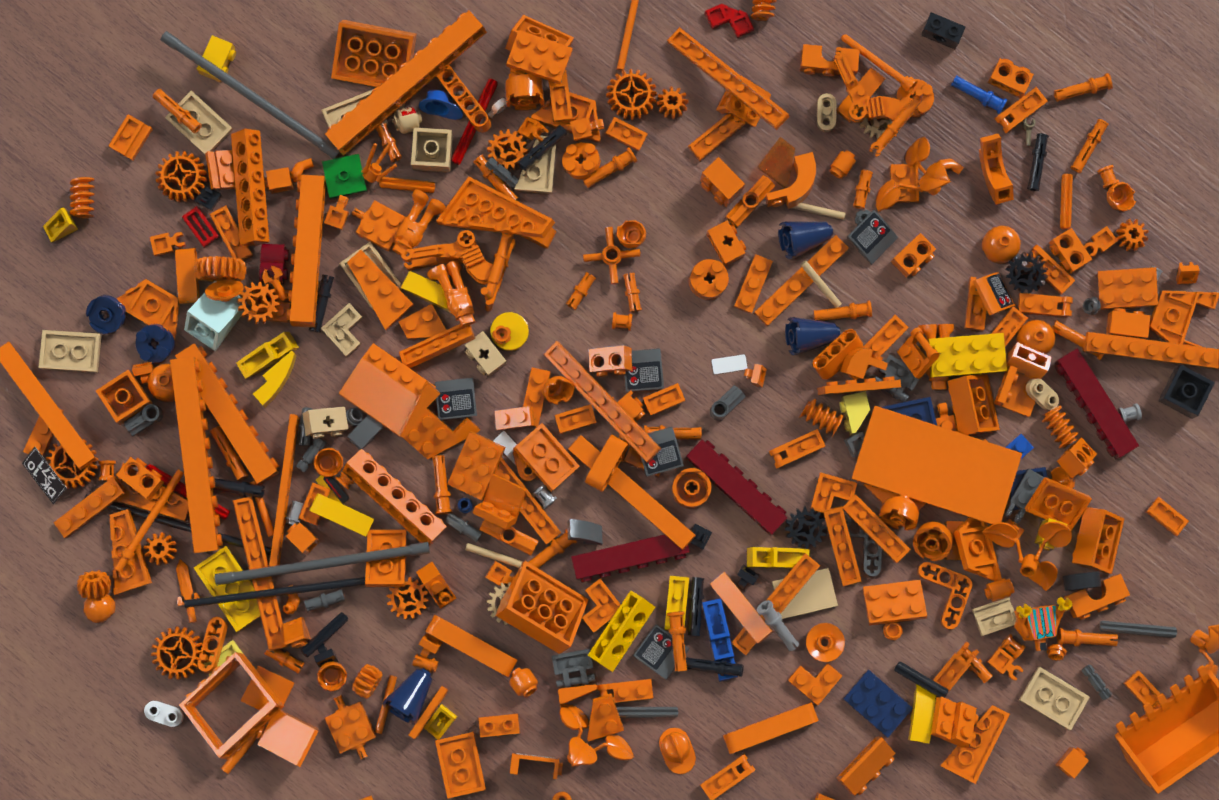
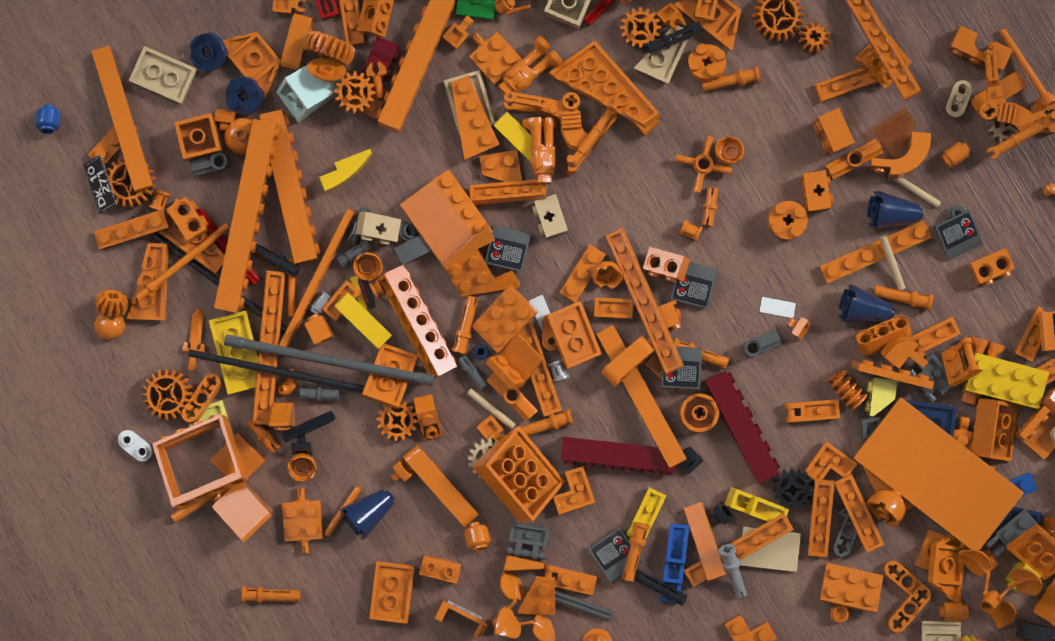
camera: 30 degrees right, 5 degrees up
(157, 543) = (185, 298): orange gear -> none
(232, 459) = (278, 224): orange pin -> none
(267, 354) = (345, 144): yellow slope -> none
(322, 300) = (416, 108): black pin -> none
(338, 329) = (420, 144): tan plate -> none
(367, 681) = (332, 484): orange gear -> none
(406, 184) = (534, 27): orange axle -> none
(425, 663) = (396, 489): orange pin -> none
(428, 712) = (379, 533): orange tile -> none
(440, 721) = (387, 545): yellow slope -> none
(496, 334) = (577, 203): orange plate -> none
(498, 184) = (618, 50): orange pin -> none
(501, 172) = (627, 48): dark grey axle -> none
(514, 418) = (556, 287): plate -> none
(518, 329) = (580, 202): yellow tile -> none
(580, 291) = (661, 188): orange pin -> none
(583, 128) = (719, 33): orange plate -> none
(584, 531) = (584, 418): dark grey slope -> none
(621, 631) = (585, 523): yellow brick -> none
(626, 134) = (759, 52): orange plate -> none
(664, 399) = (703, 319): orange plate -> none
(696, 606) = (663, 524): black pin -> none
(753, 284) = (828, 239): orange plate -> none
(835, 642) = (779, 608): orange dish -> none
(862, 189) = (966, 185): orange pin -> none
(906, 175) = (1008, 193): orange plate -> none
(930, 182) = (1035, 203): orange plant -> none
(932, 541) = (908, 544): orange cylinder -> none

